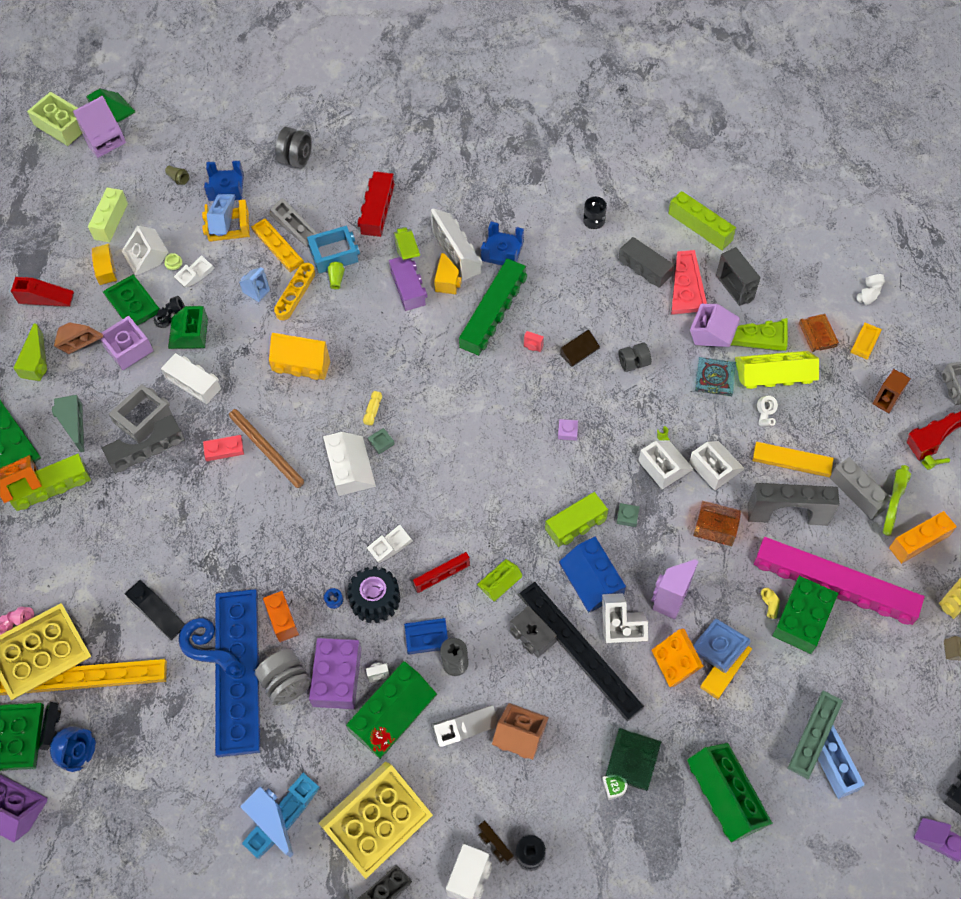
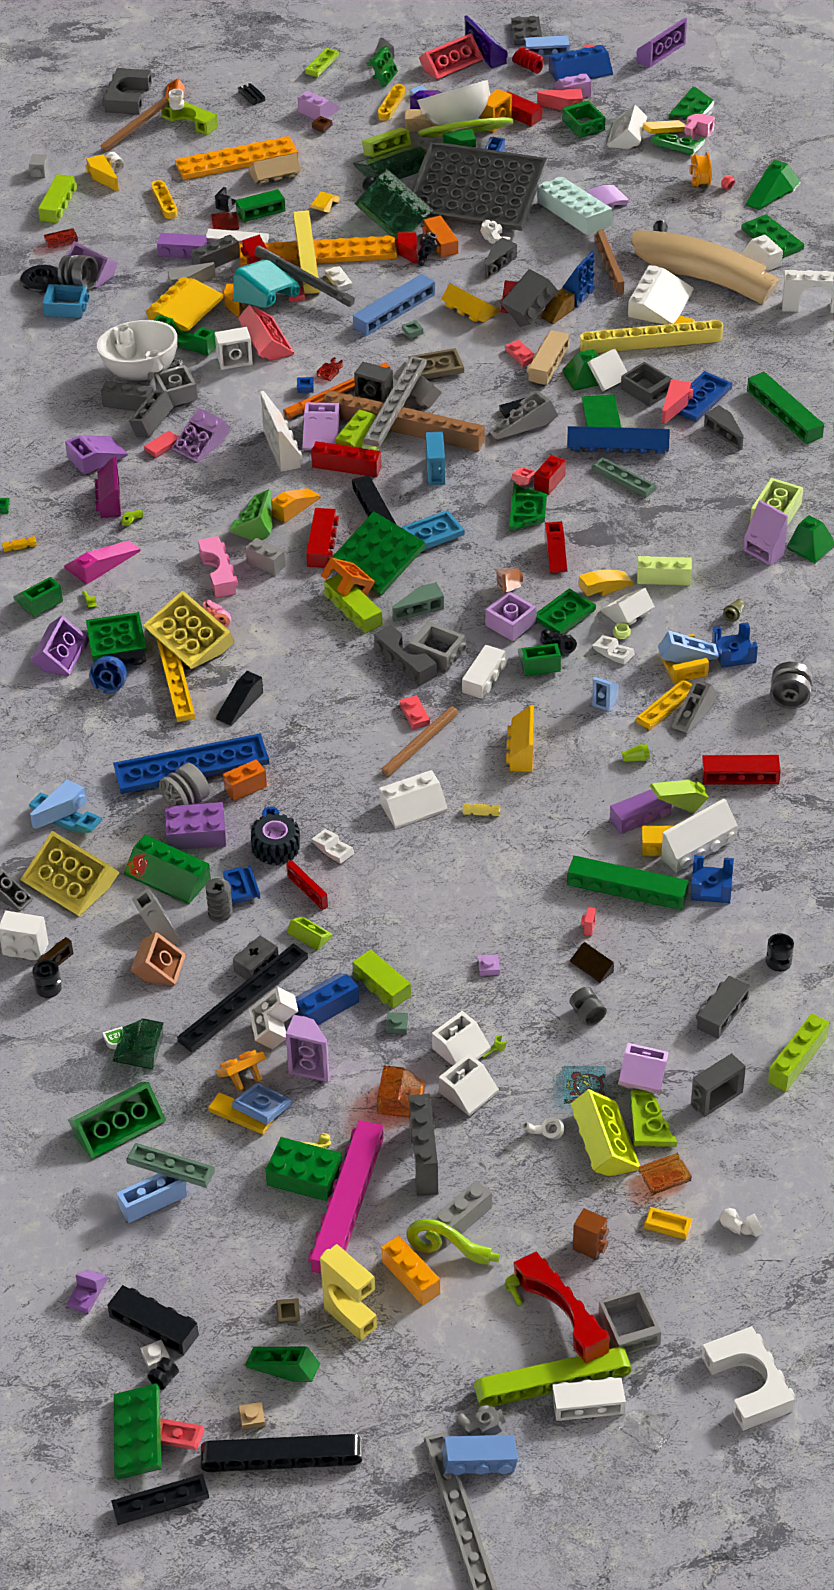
camera: 80 degrees right, 15 degrees down
(32, 358) = (486, 560): lime slope -> none
(226, 660) = (196, 746): blue plant -> none
(298, 292) = (610, 725): yellow beam -> none
(346, 258) = (662, 732): dark azure window -> none
(377, 672) = (200, 852): white plate -> none
(381, 441) = (443, 820): sand green plate -> none
(688, 285) = (703, 1049): coral wing -> none
(793, 459) = (491, 1155): yellow tile -> none

